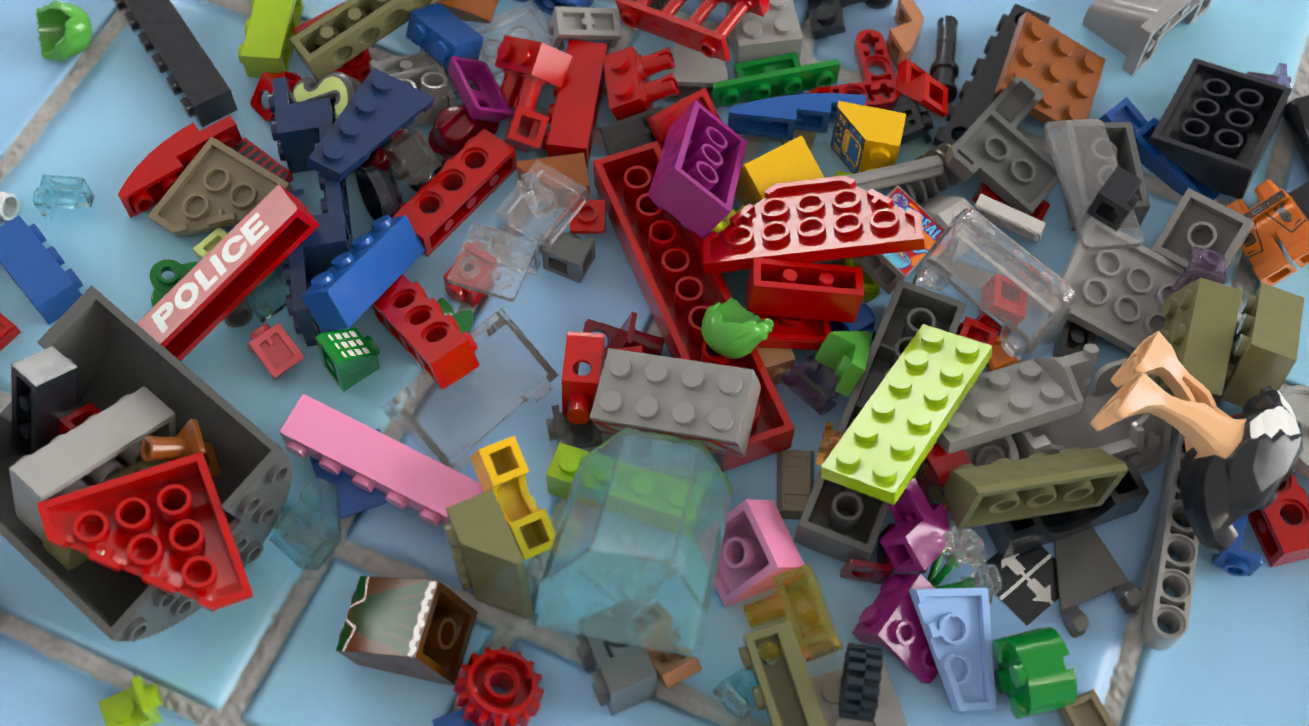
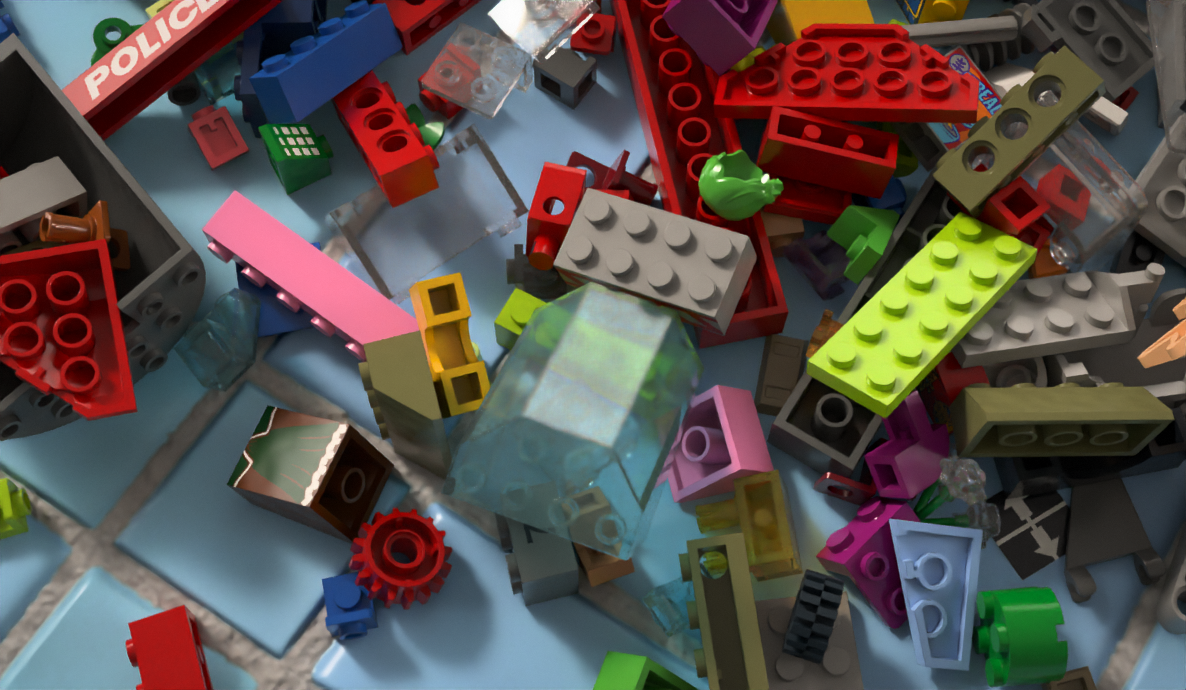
camera: 10 degrees right, 5 degrees up
(955, 315) = (1012, 207): none -> red slope
(985, 198) = (1059, 72): none -> olive brick

